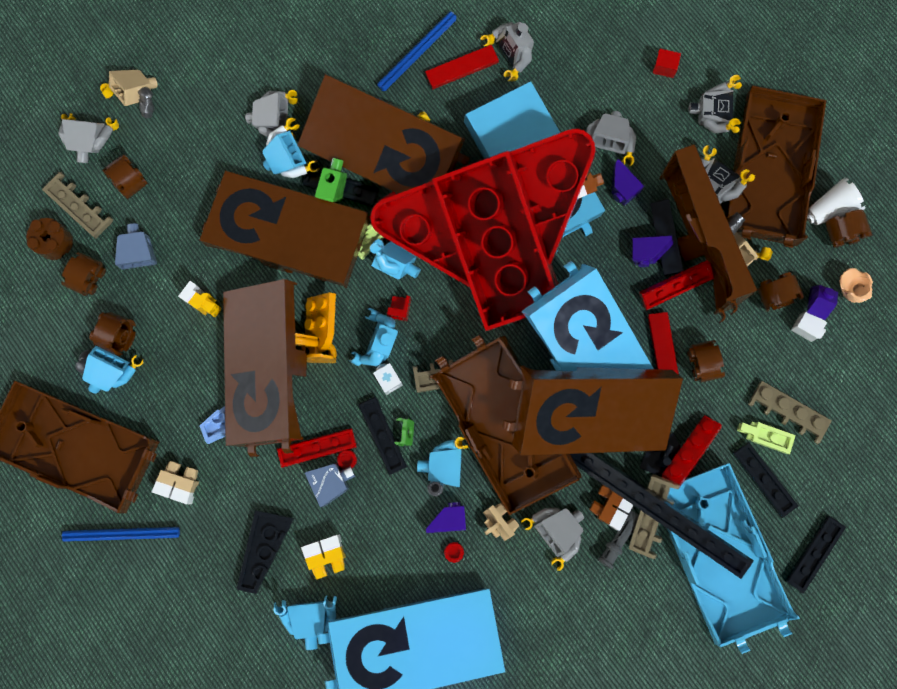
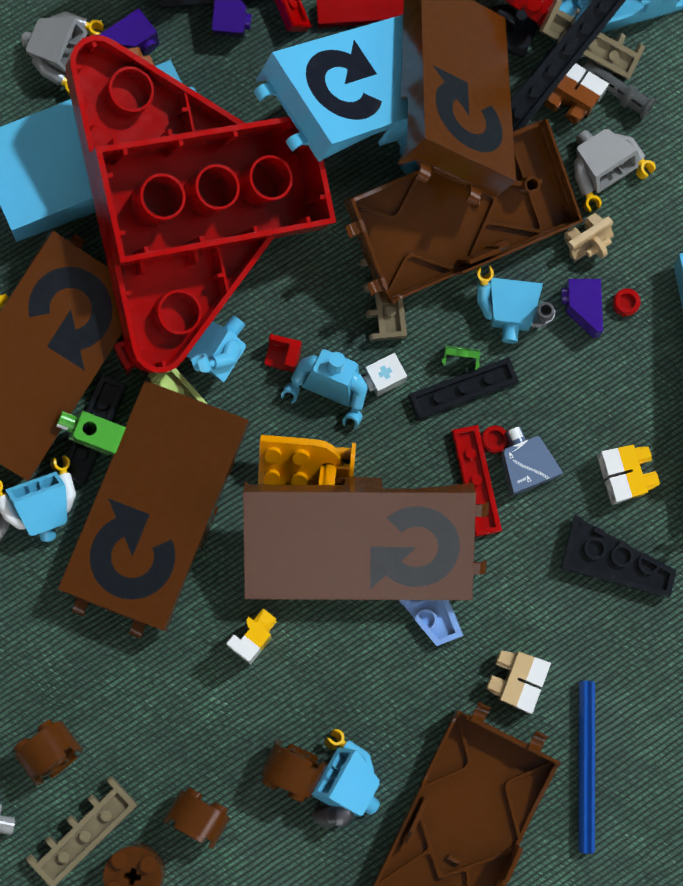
camera: 95 degrees left, 0 degrees up
(134, 249) = (161, 740): sand blue torso -> none

